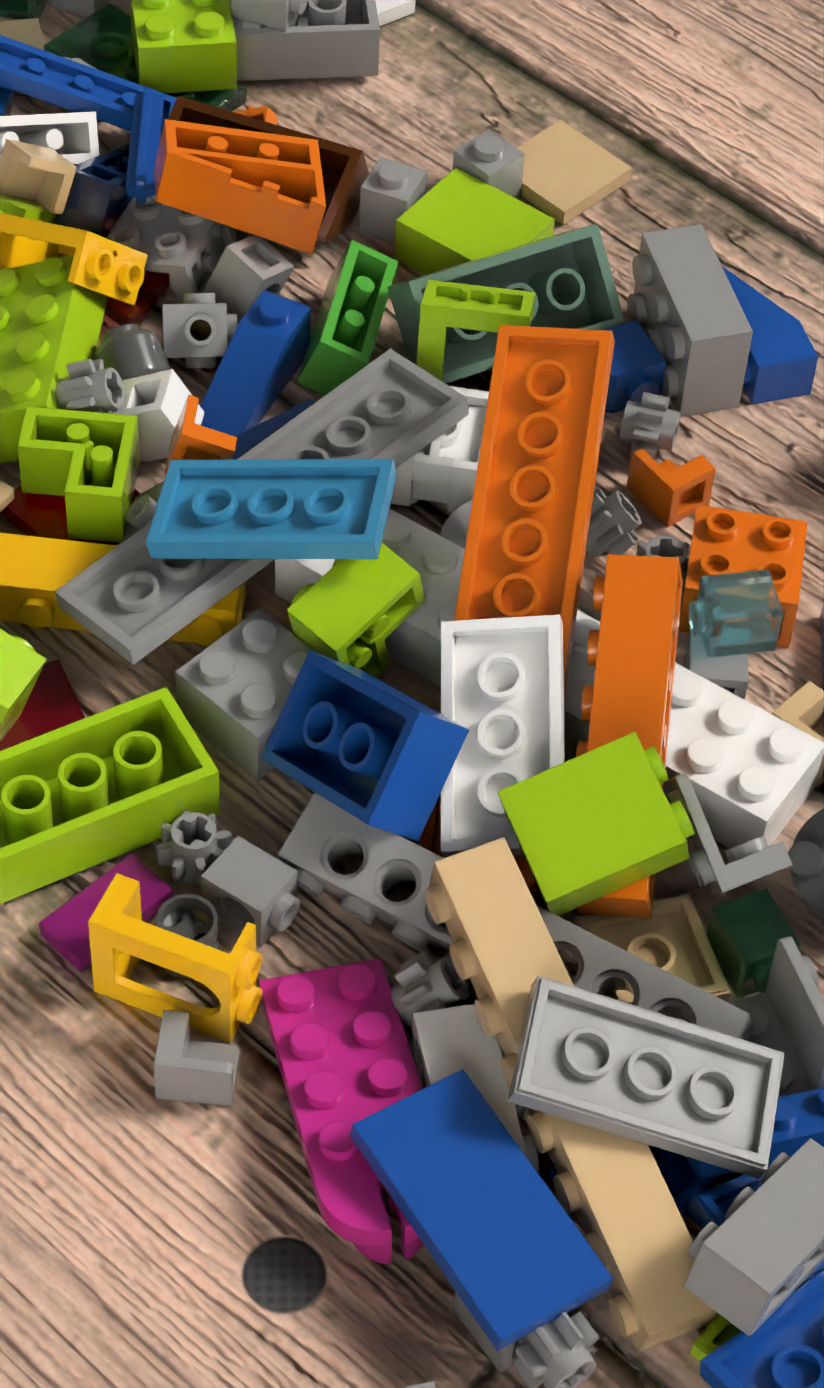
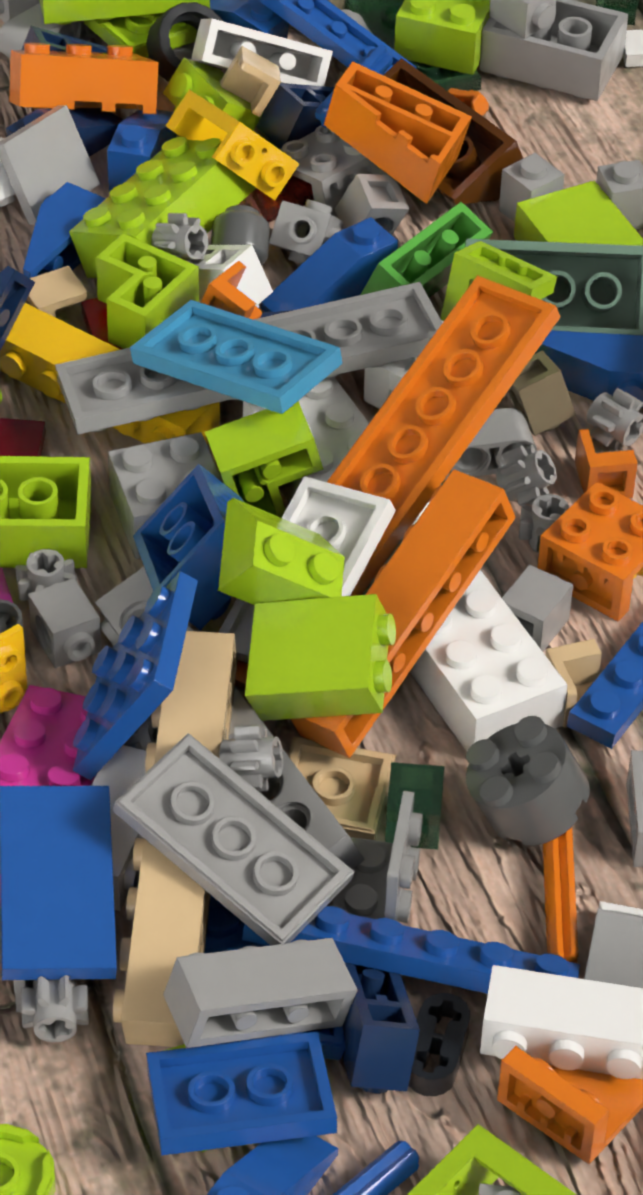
camera: 30 degrees right, 5 degrees down
(421, 929) = (134, 674): none -> blue plate
(497, 732) = (275, 558): none -> lime slope
(603, 967) = (253, 755): none -> light grey gear
(736, 613) = (560, 564): clear light blue brick -> none
(745, 861) = (412, 724): light grey bracket -> none

